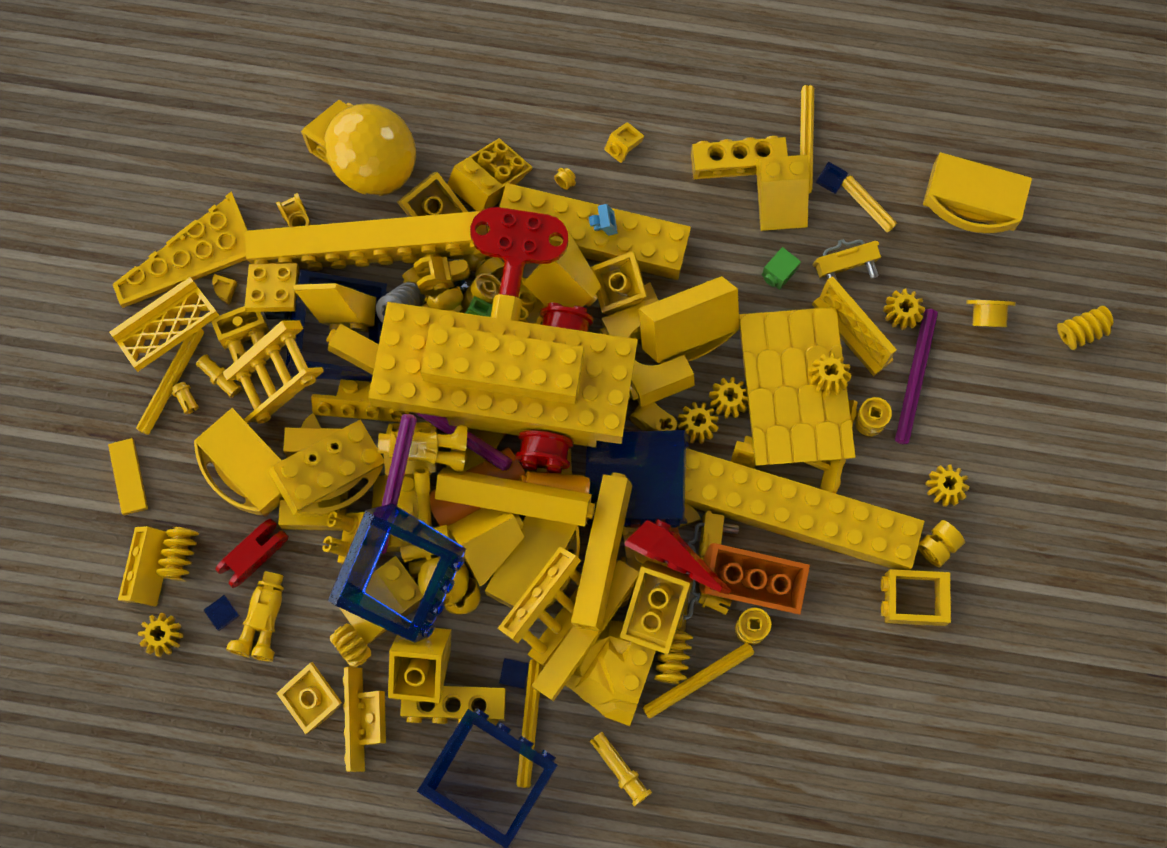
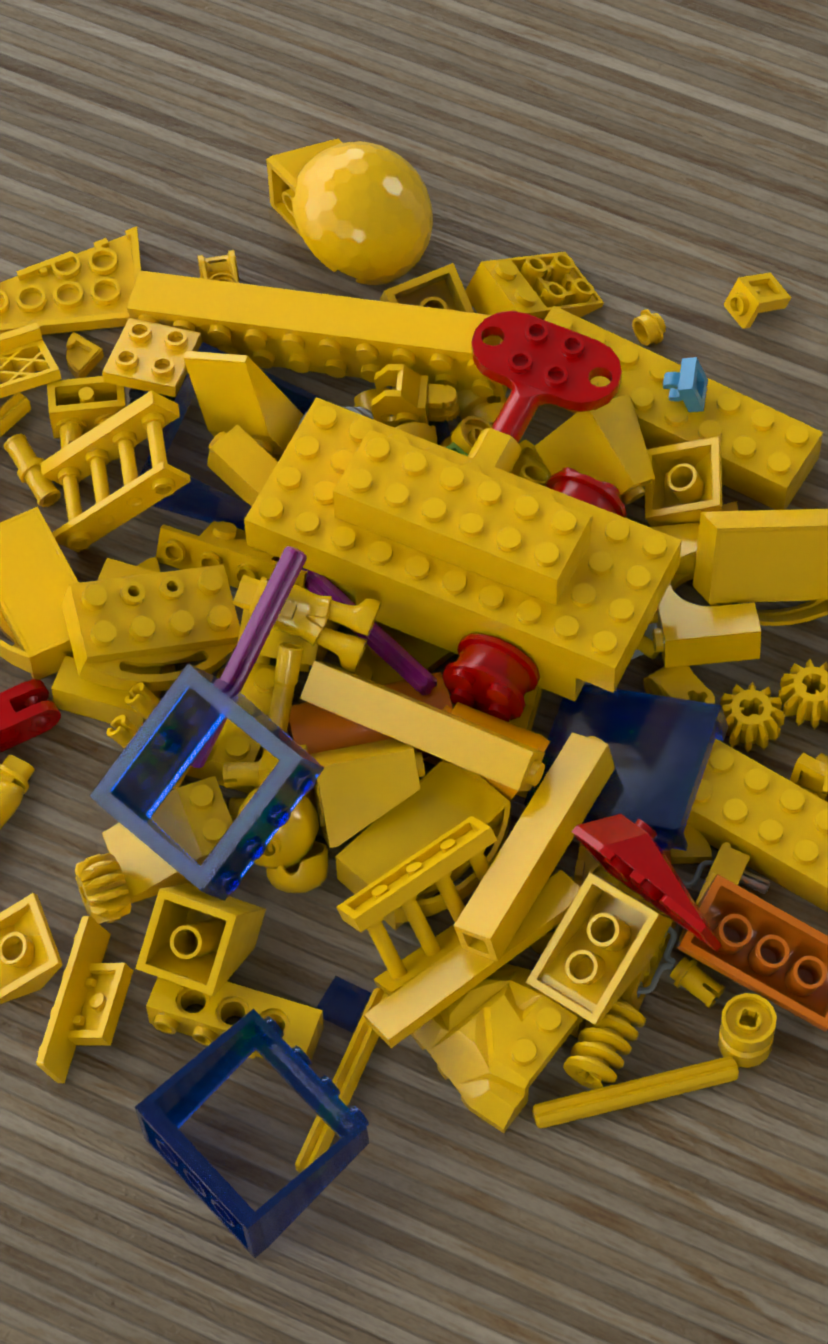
camera: 20 degrees right, 15 degrees down
(627, 778) = (474, 1202): yellow pin -> none

